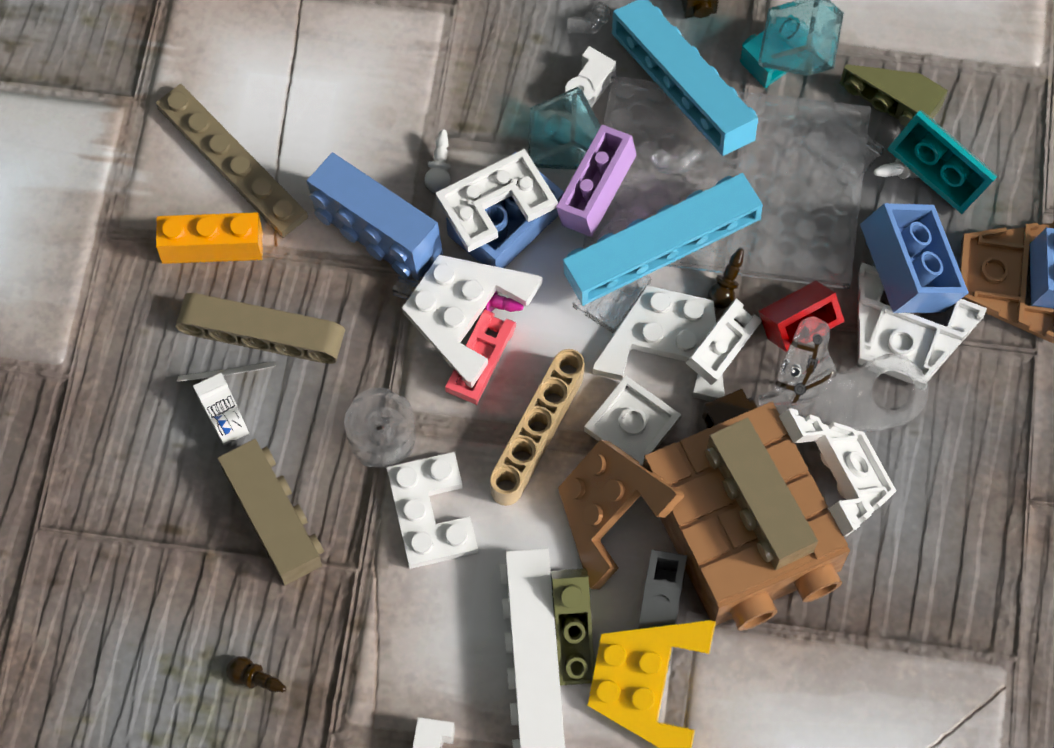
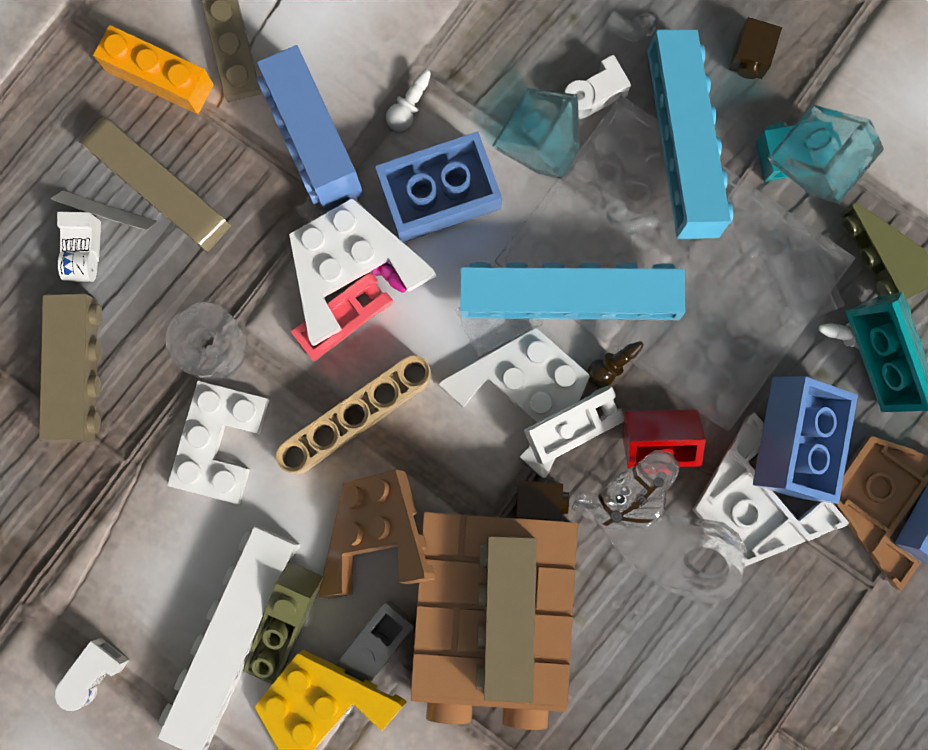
camera: 30 degrees right, 15 degrees up
(468, 198) = (434, 156): white plate -> none
(596, 180) = (540, 201): lavender brick -> none
(633, 420) = (445, 457): white plate -> none
(852, 462) = (626, 619): white wing -> none

